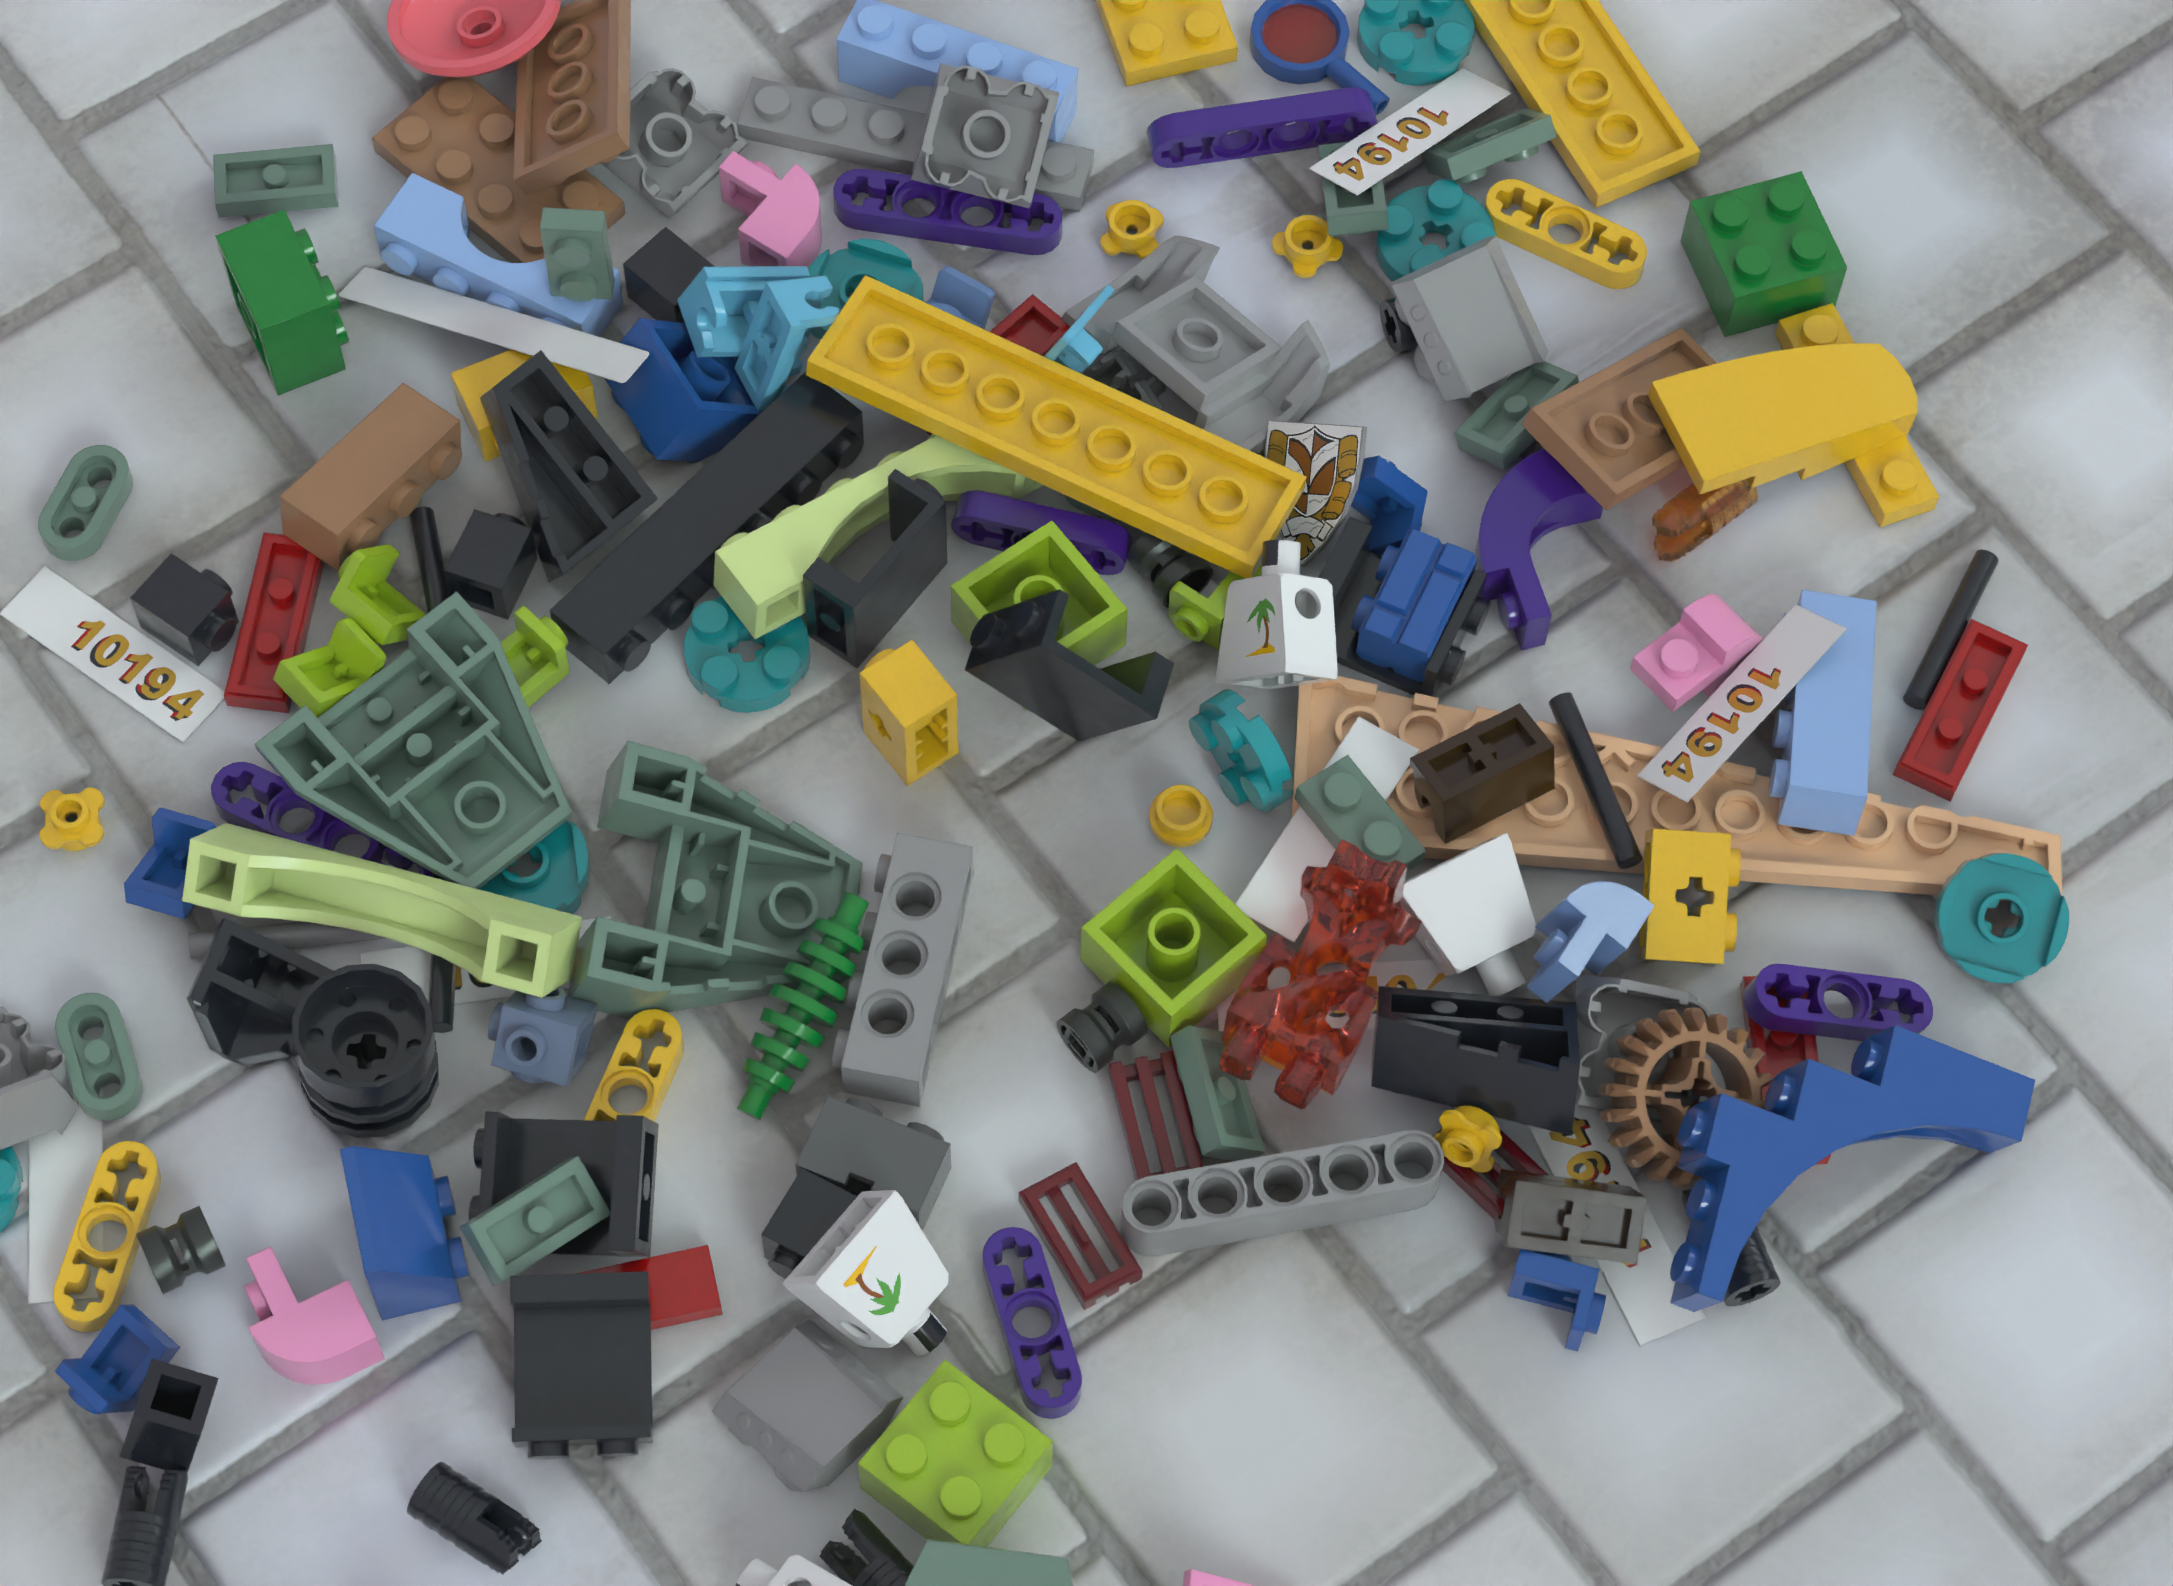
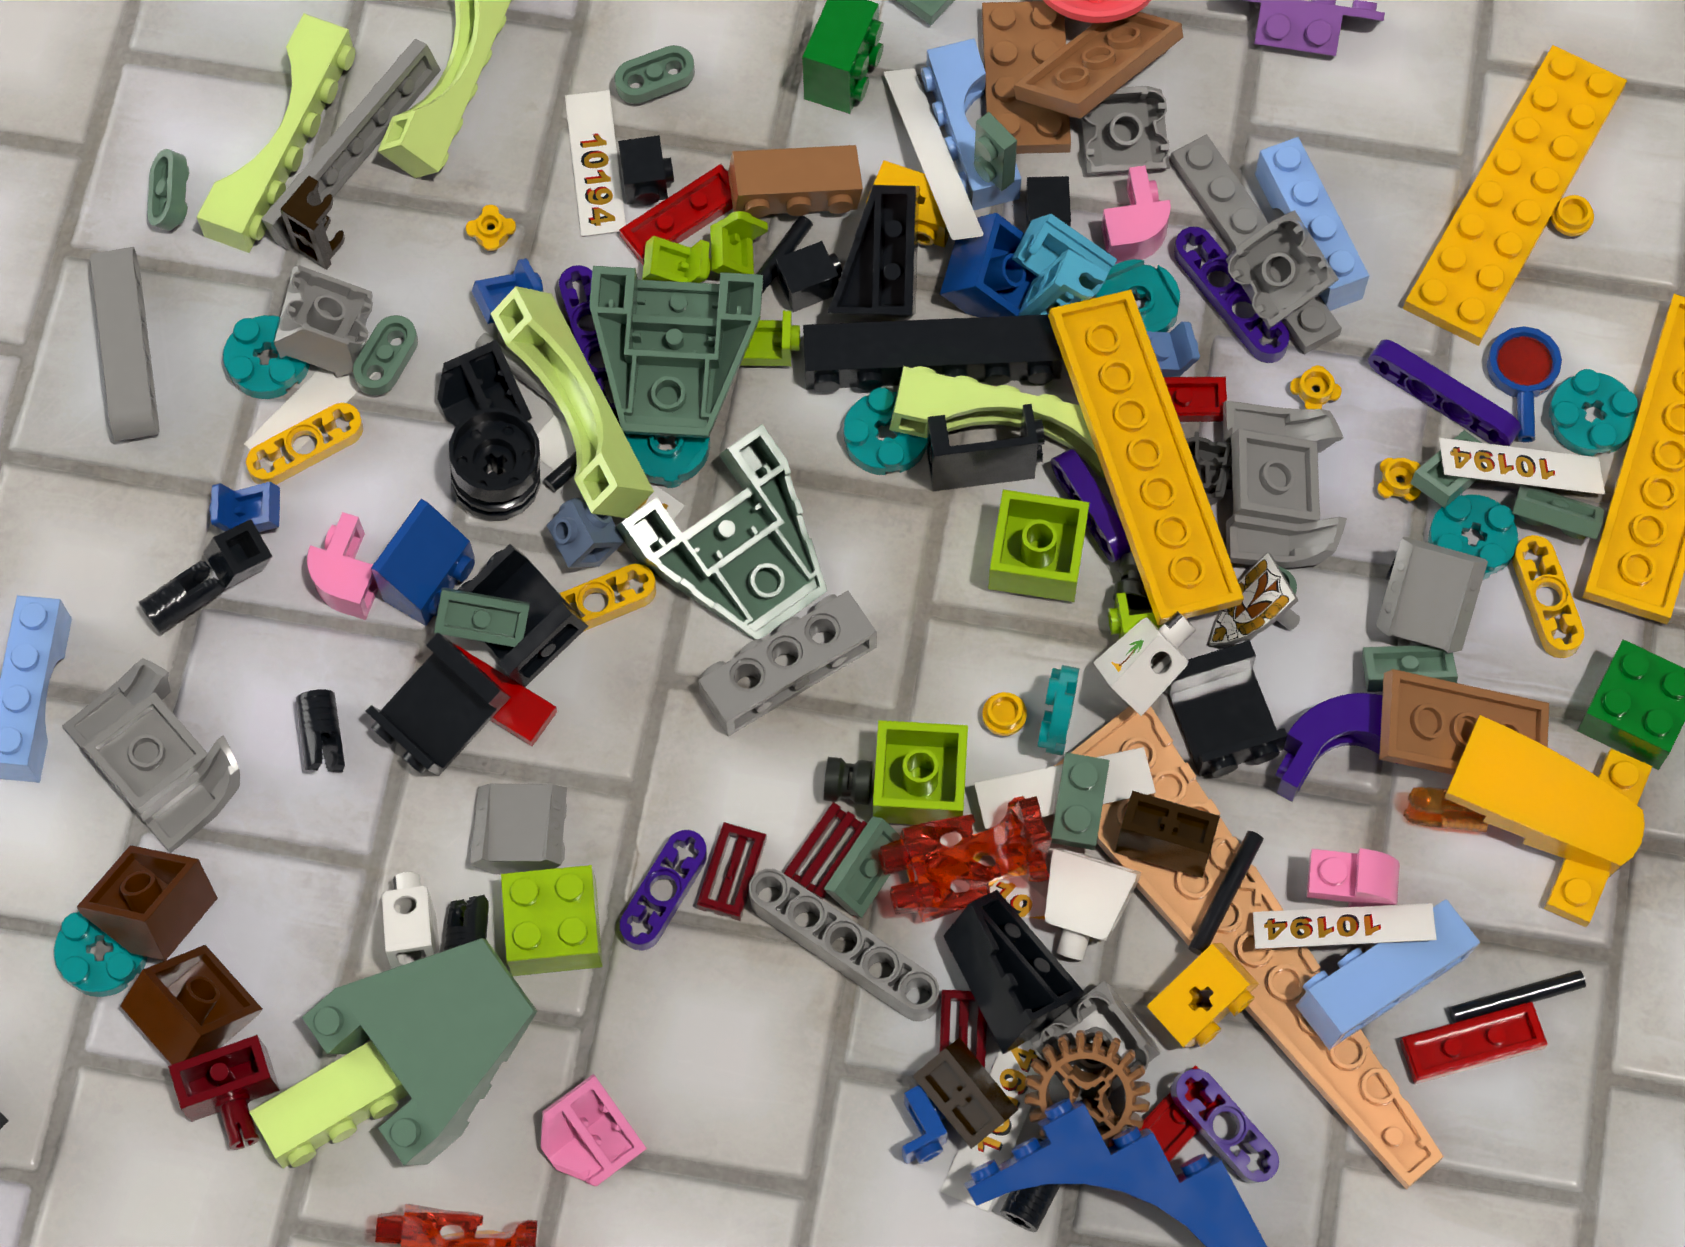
camera: 50 degrees right, 5 degrees up
(195, 1243) = (326, 481): pearl dark grey wheel -> none
(802, 1220) = (607, 745): black brick -> none
(803, 1005) = (717, 633): green piece -> none
(868, 1152) = (676, 755): dark grey brick -> none
(875, 1276) = (605, 795): white torso -> none
(909, 711) = (918, 534): yellow brick -> none
(1021, 659) = (1027, 621): black panel -> none
(1076, 347) = (1203, 419): medium azure piece -> none
(1389, 501) = (1287, 652): blue bracket -> none
(1413, 603) = (1235, 713): blue brick -> none
(1469, 1137) = (958, 1006): yellow plate -> none
(1587, 932) = (1130, 960): brick -> none
(2019, 950) = (1386, 1167): teal plate -> none

